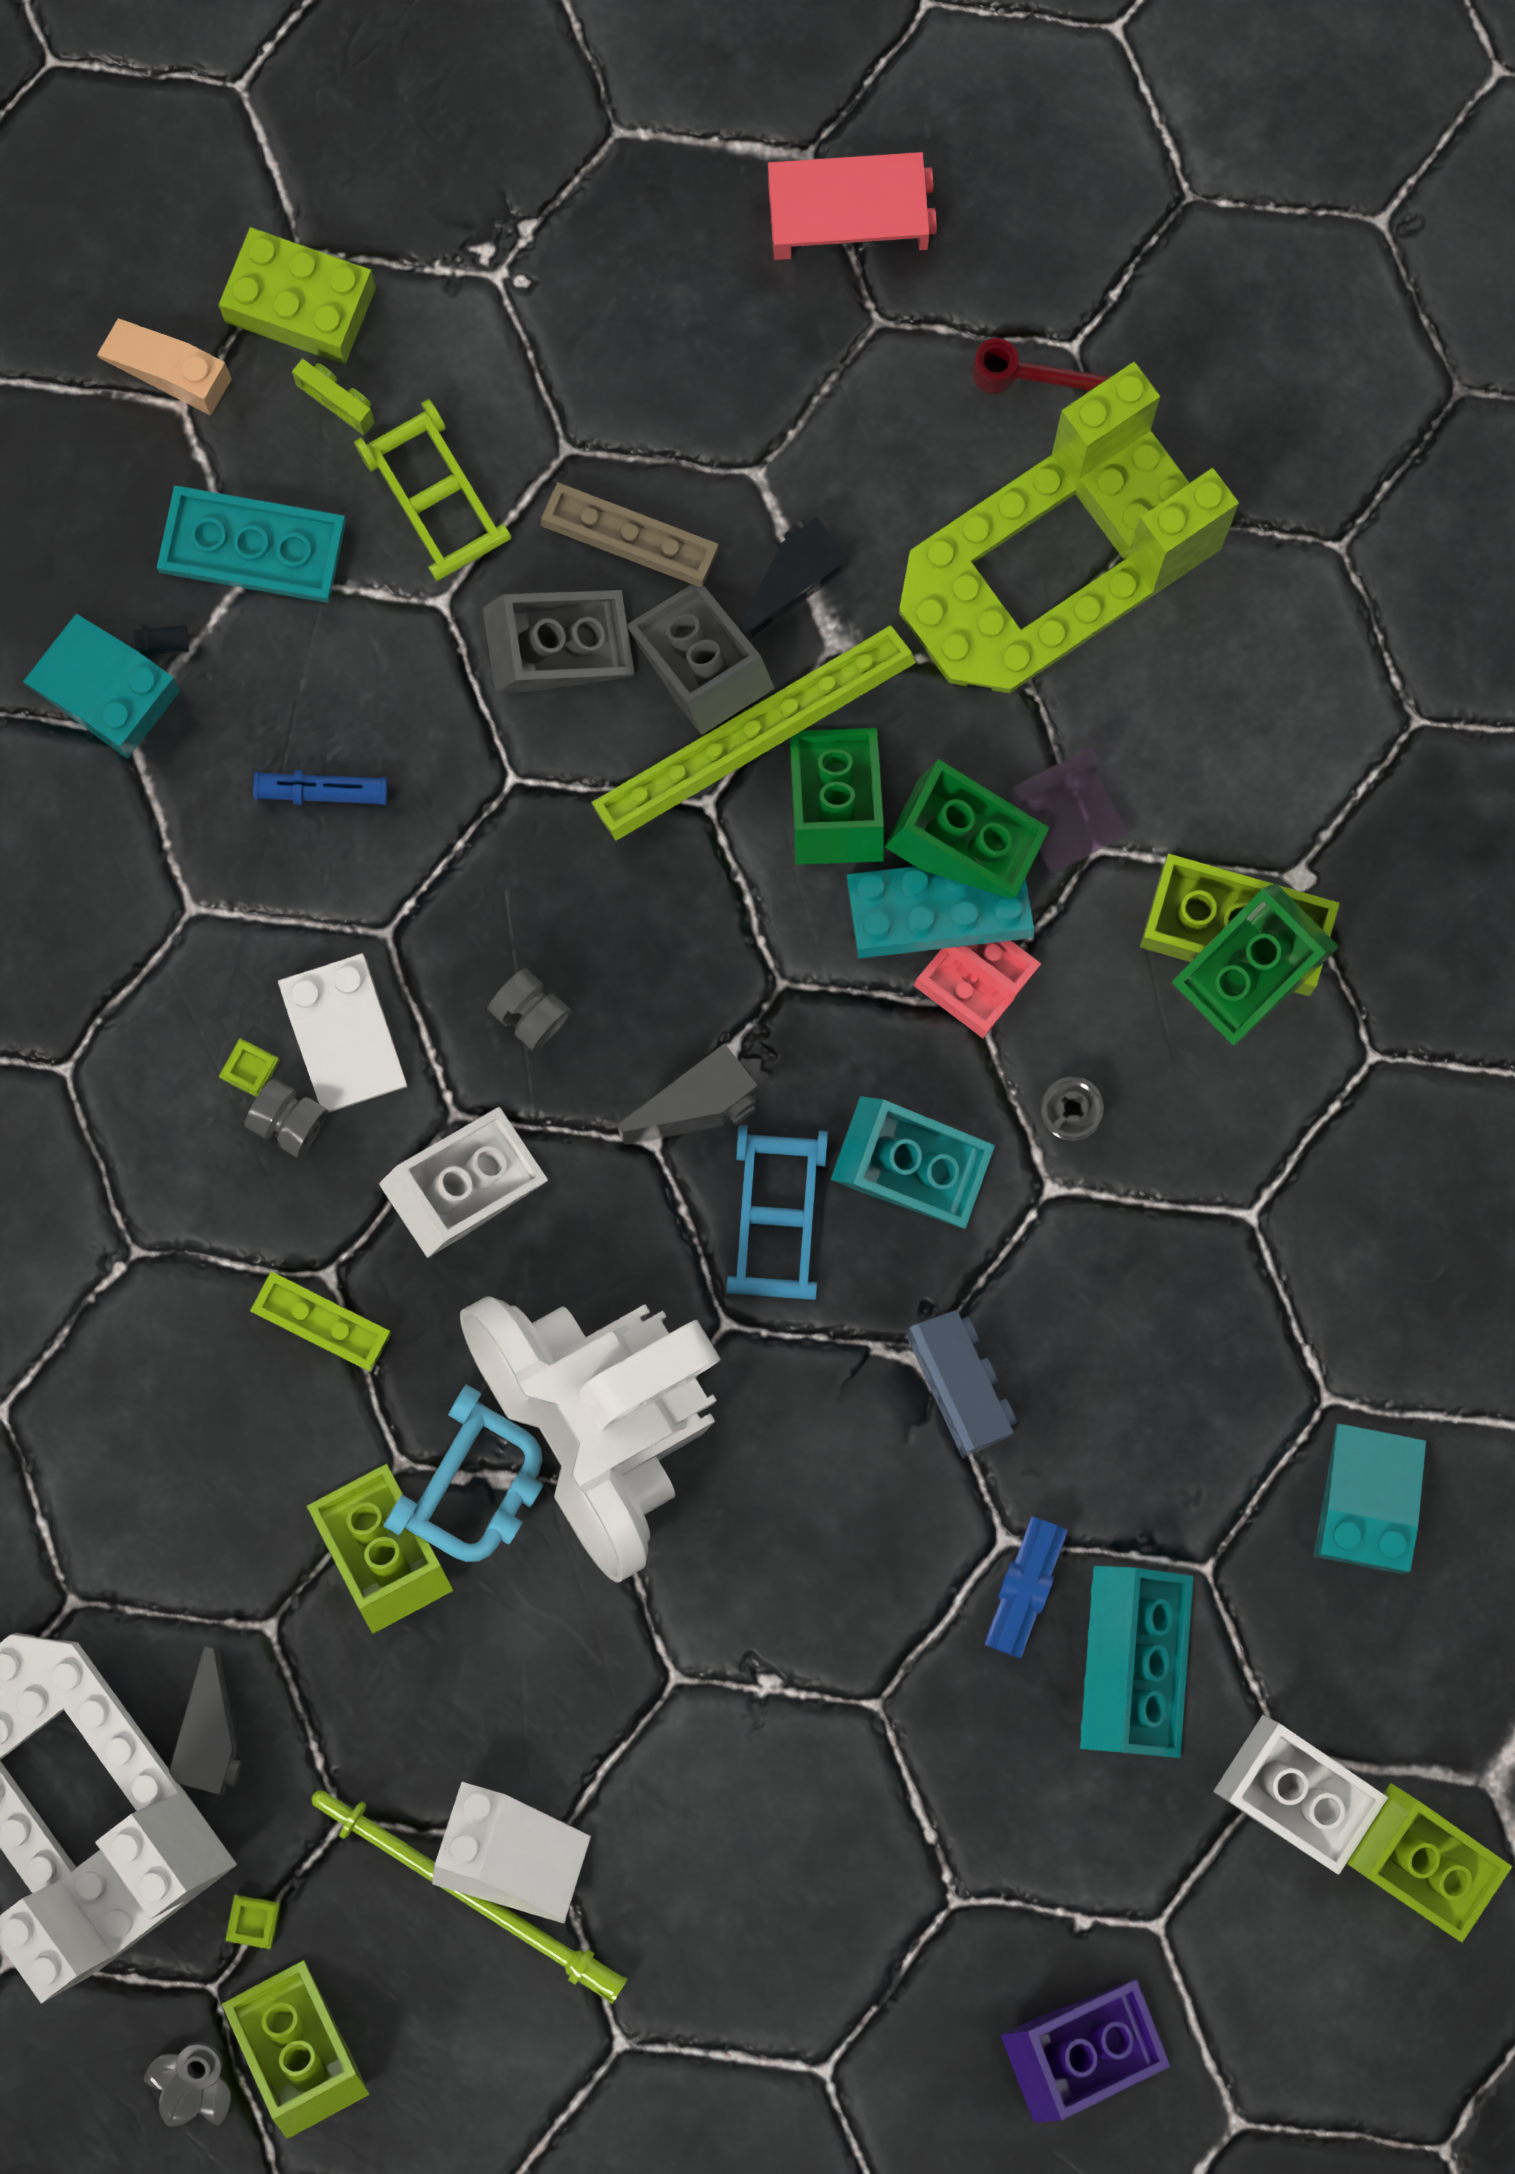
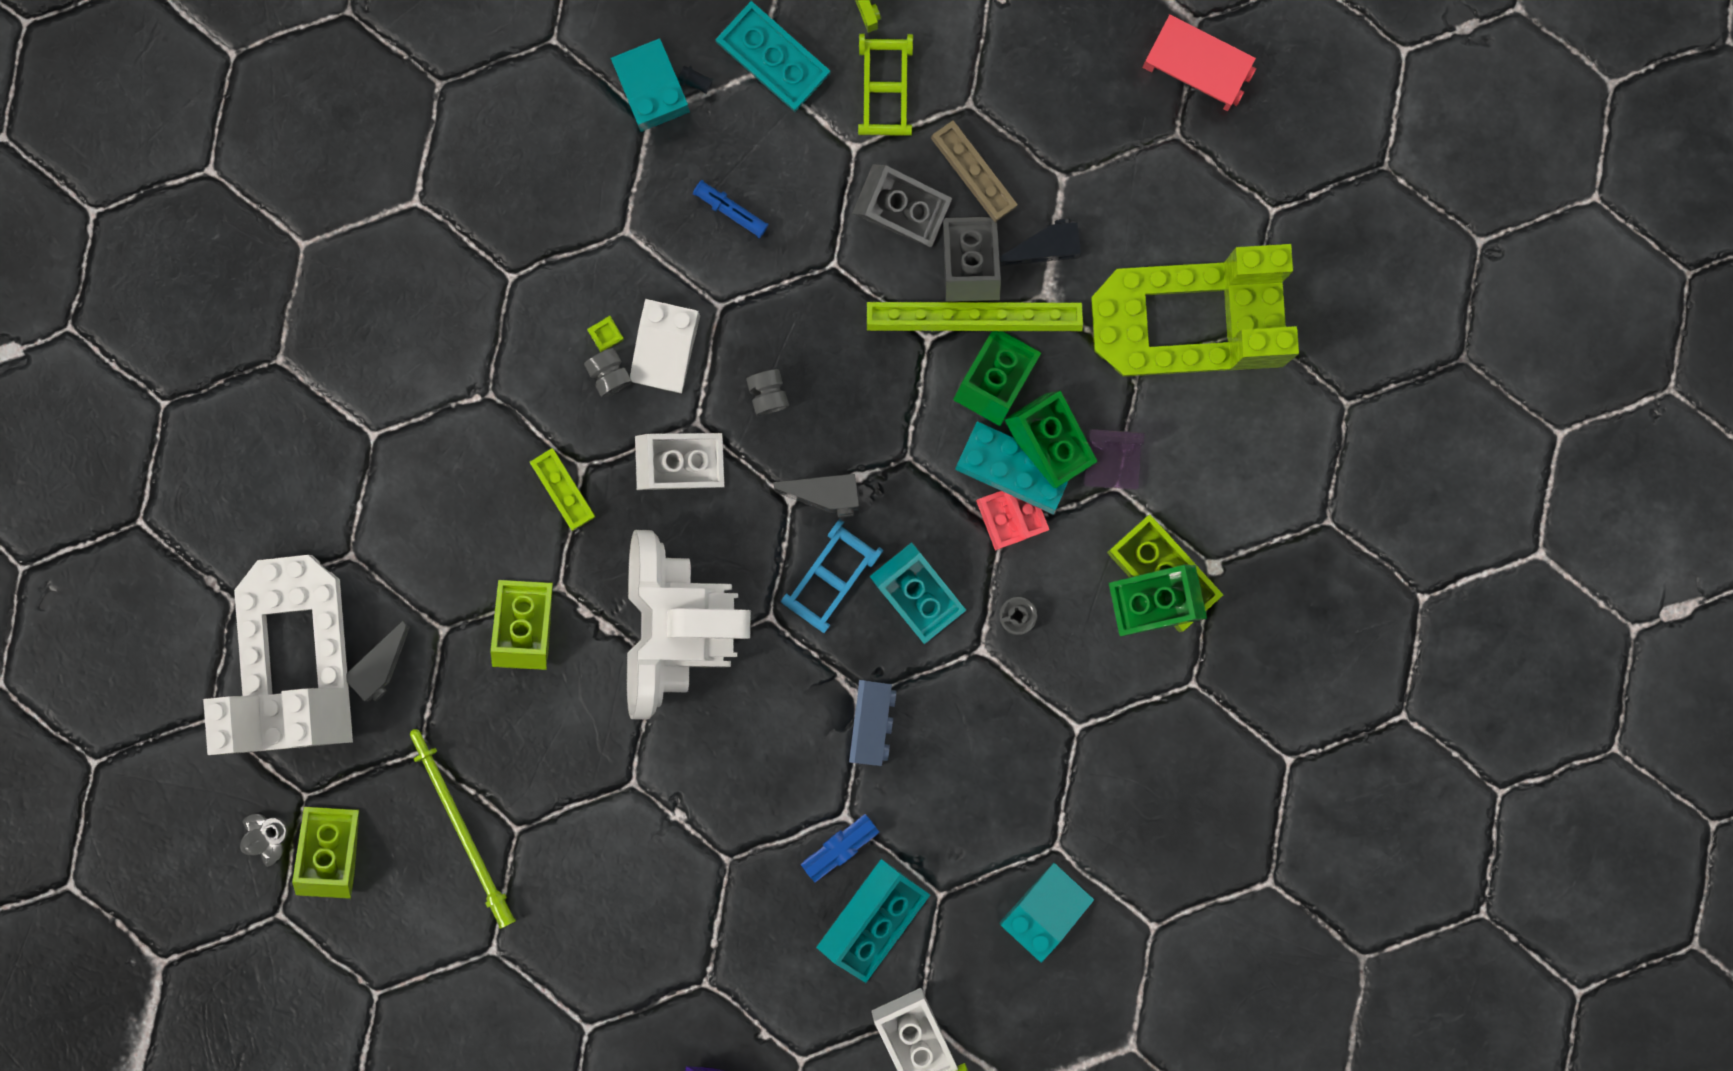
camera: 30 degrees right, 5 degrees up
(253, 1921) = (344, 775): lime tile -> none
(510, 1854) = (493, 822): white slope -> none
(522, 1490) = (612, 640): medium azure bar -> none
(1007, 354) = (1241, 212): dark red piece -> none

